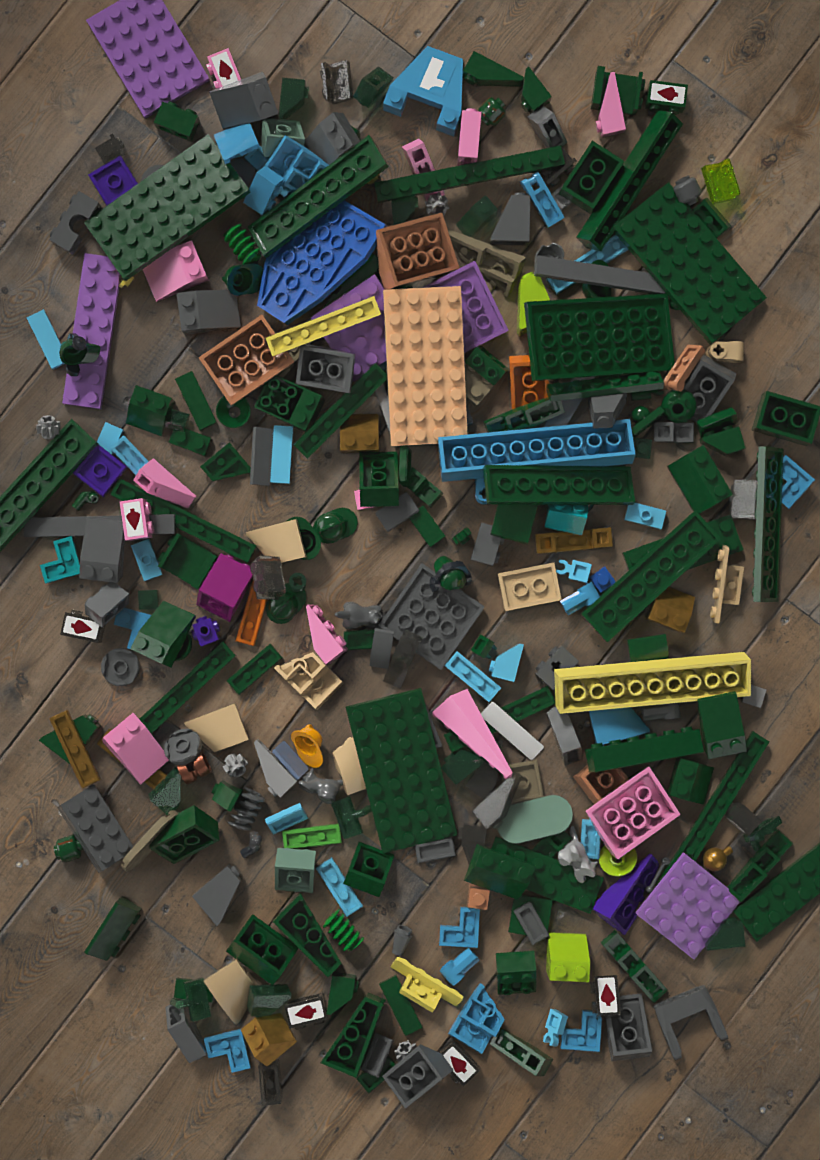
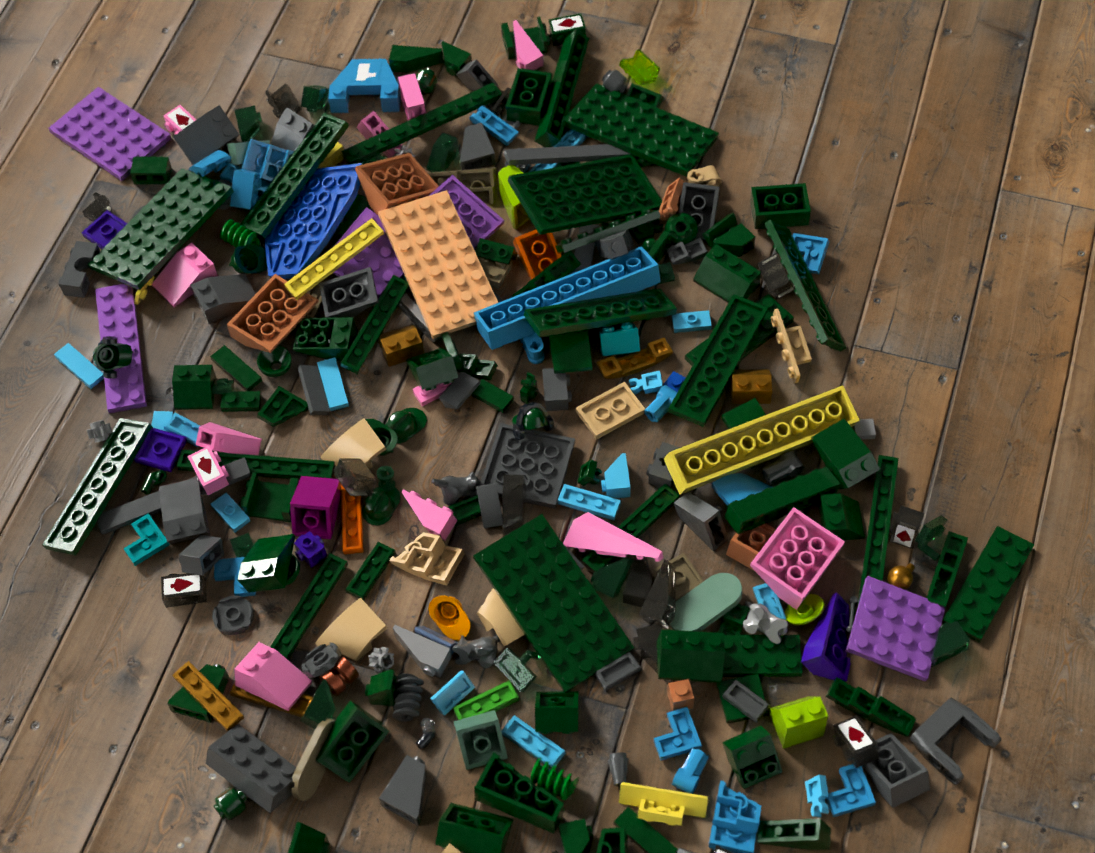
camera: 15 degrees left, 30 degrees down
(512, 730) = (649, 534): white sticker -> none

